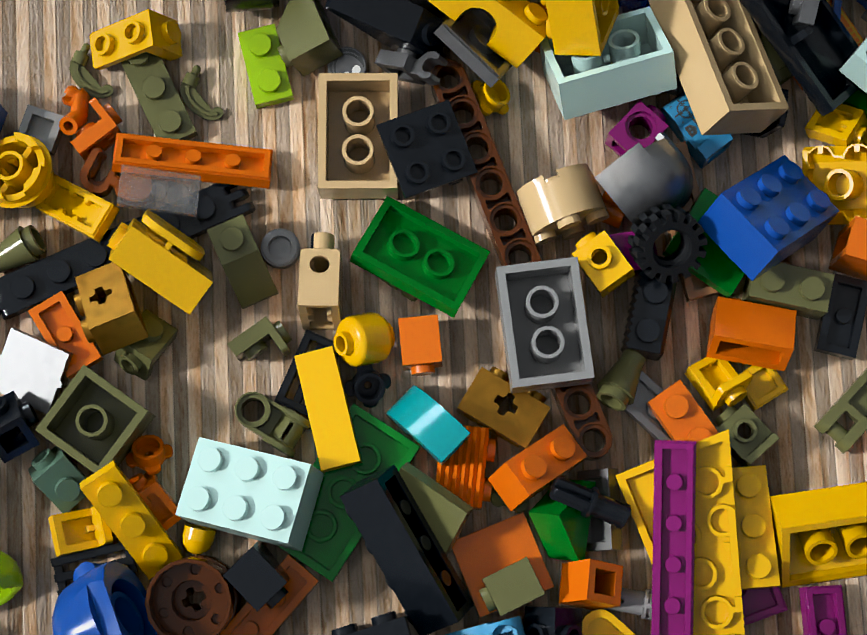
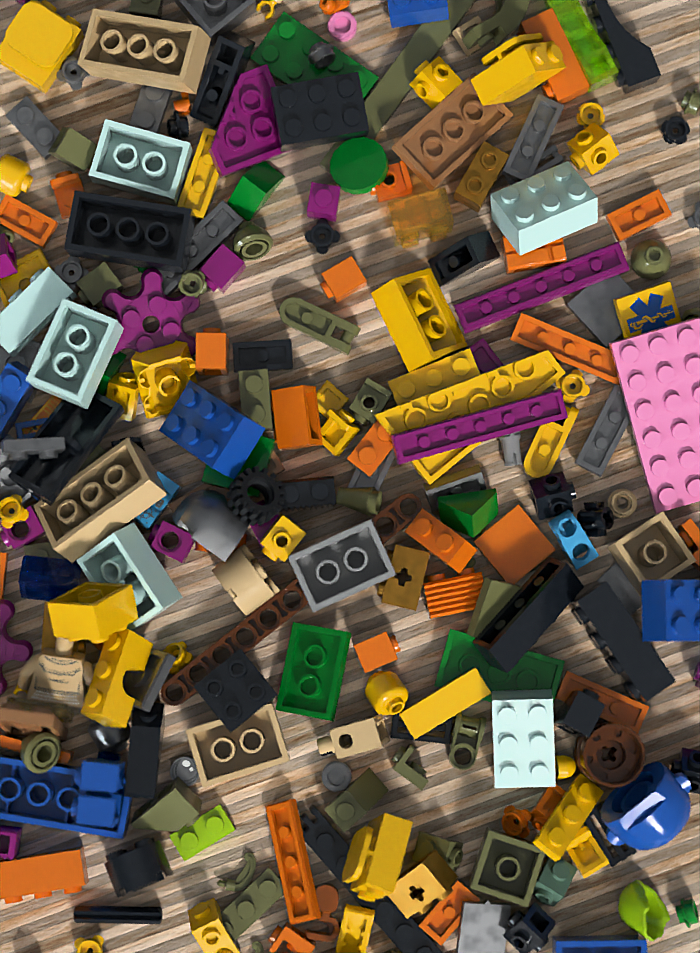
camera: 110 degrees left, 5 degrees up
(158, 190) = (325, 877): clear plate -> none
(371, 395) = (424, 677): black plate -> none
(410, 66) = (174, 725): flat silver plate -> none
(428, 424) = (434, 628): teal brick -> none
(511, 587) = (530, 534): olive brick -> none
(590, 502) = (455, 496): black axle -> none
(591, 584) = (510, 479): orange brick -> none

